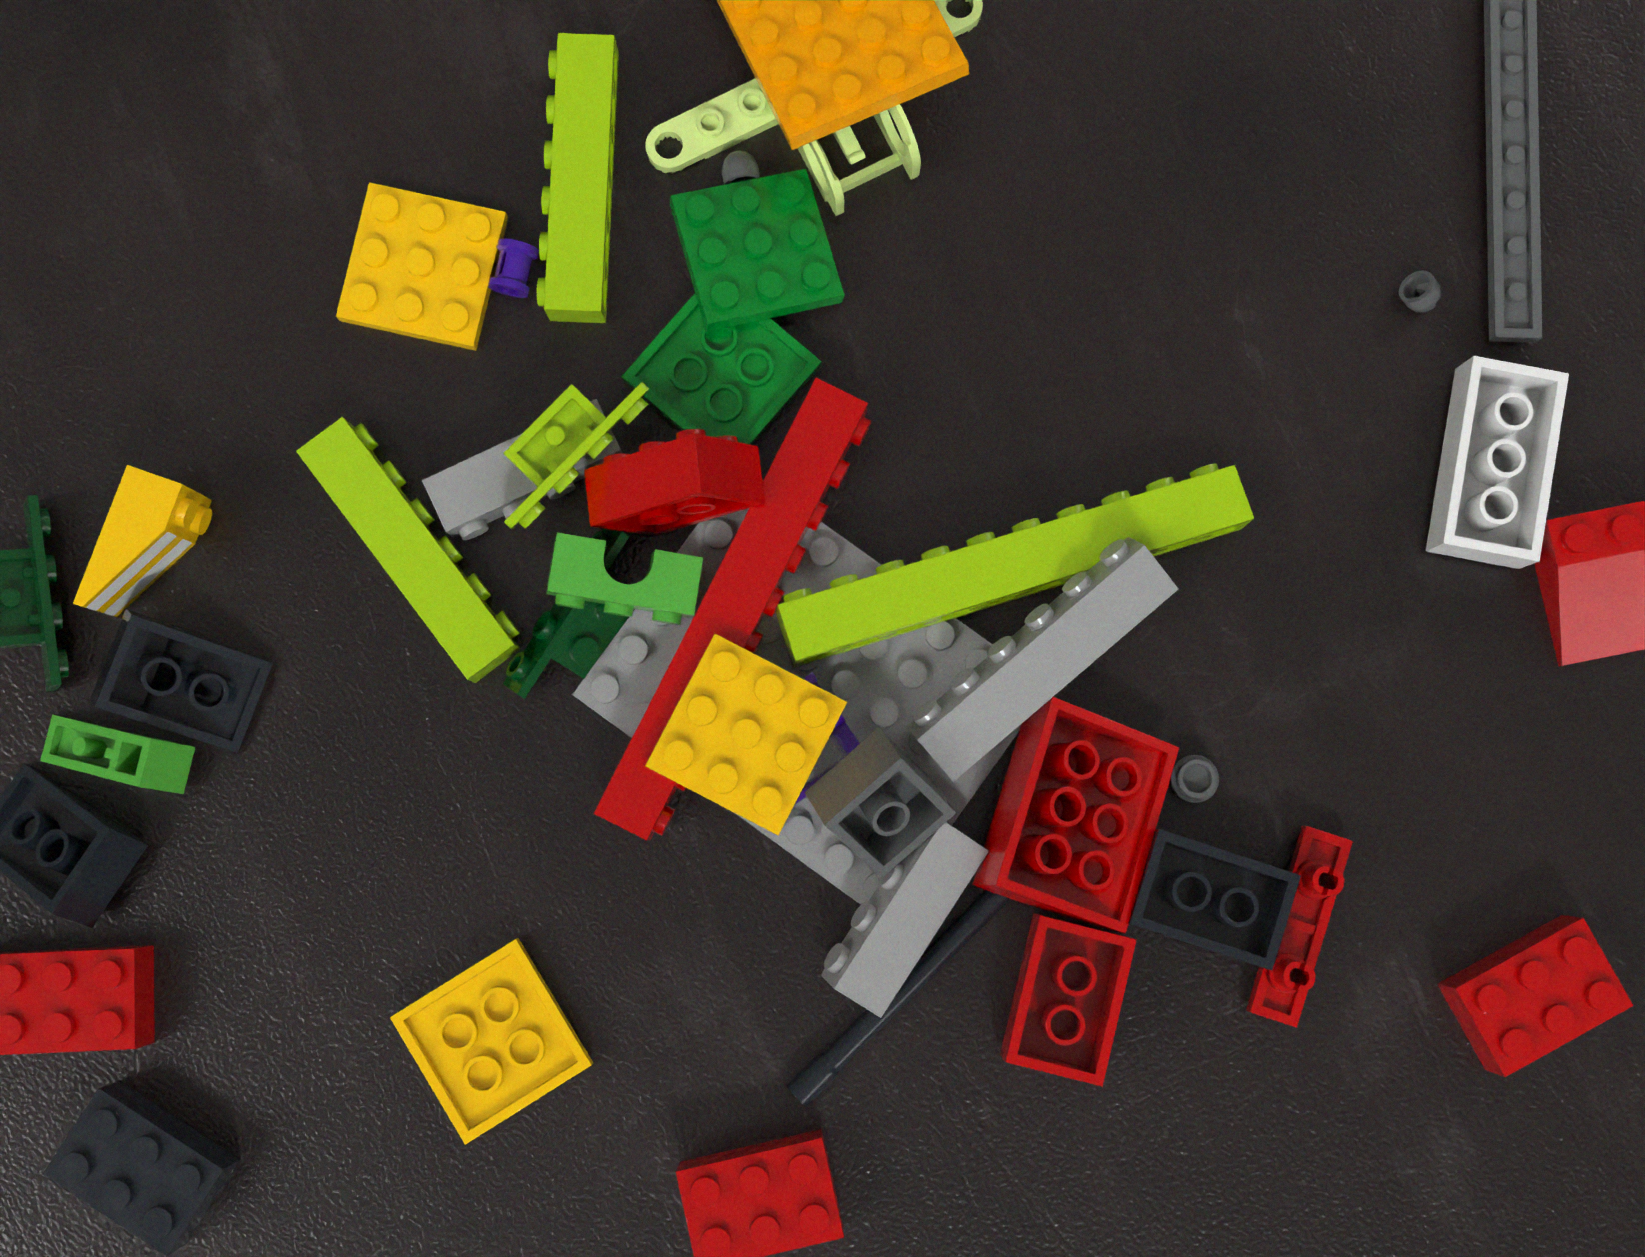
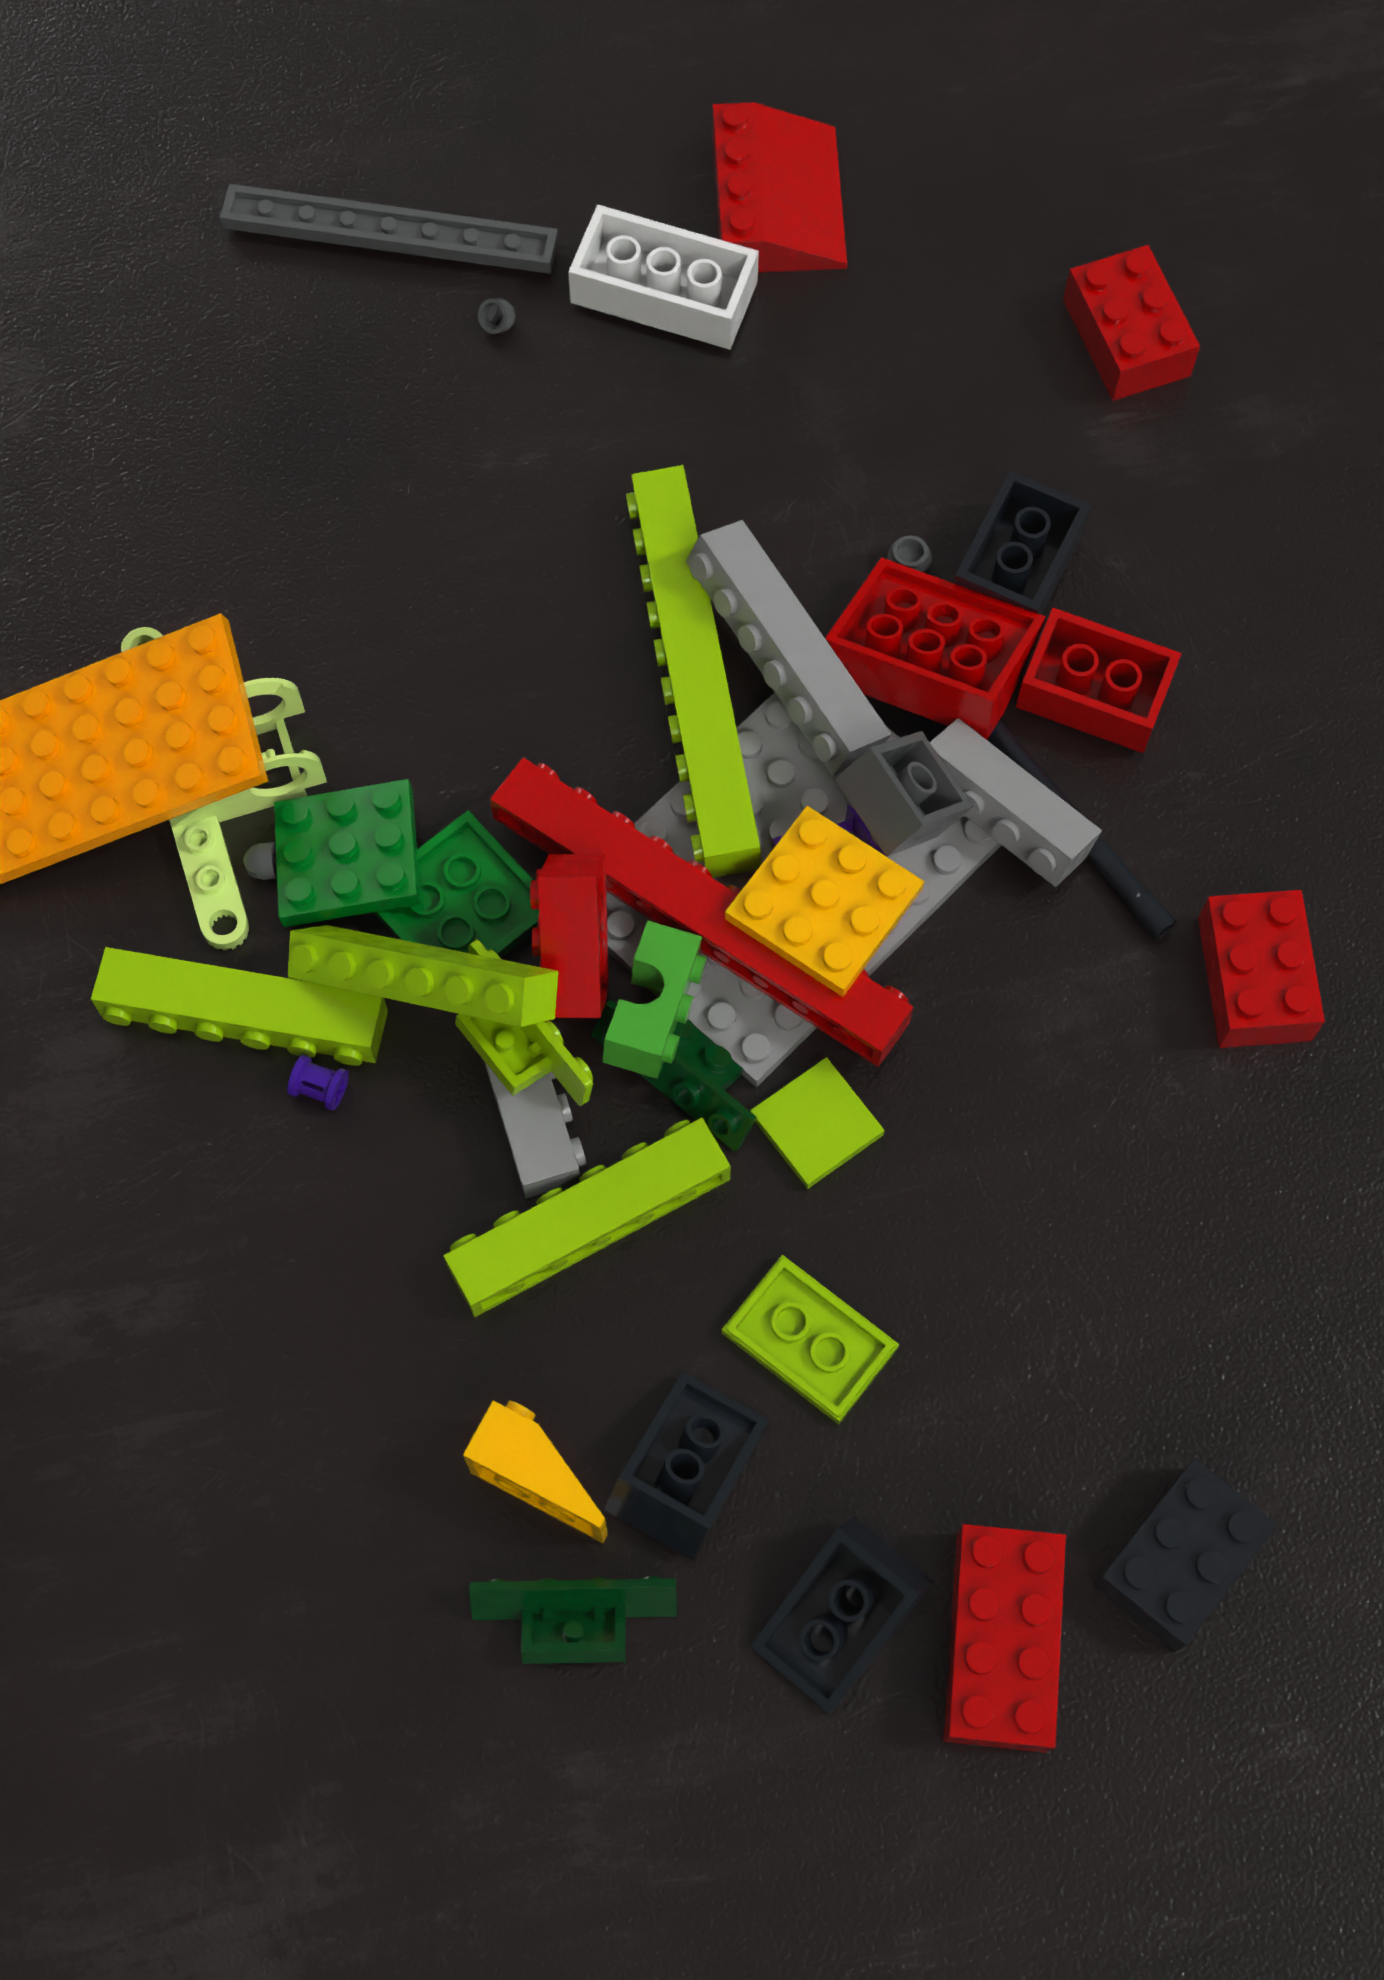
camera: 80 degrees left, 15 degrees down
(118, 754) = (754, 1540): bright green slope -> none
(321, 782) = (810, 1339): none -> lime tile
(422, 266) = (296, 1175): yellow plate -> none
(491, 1040) = (1088, 1199): yellow plate -> none
(540, 760) = (817, 1123): none -> lime tile
(604, 344) = (423, 975): none -> lime brick
(1321, 863) = (1110, 514): red plate -> none

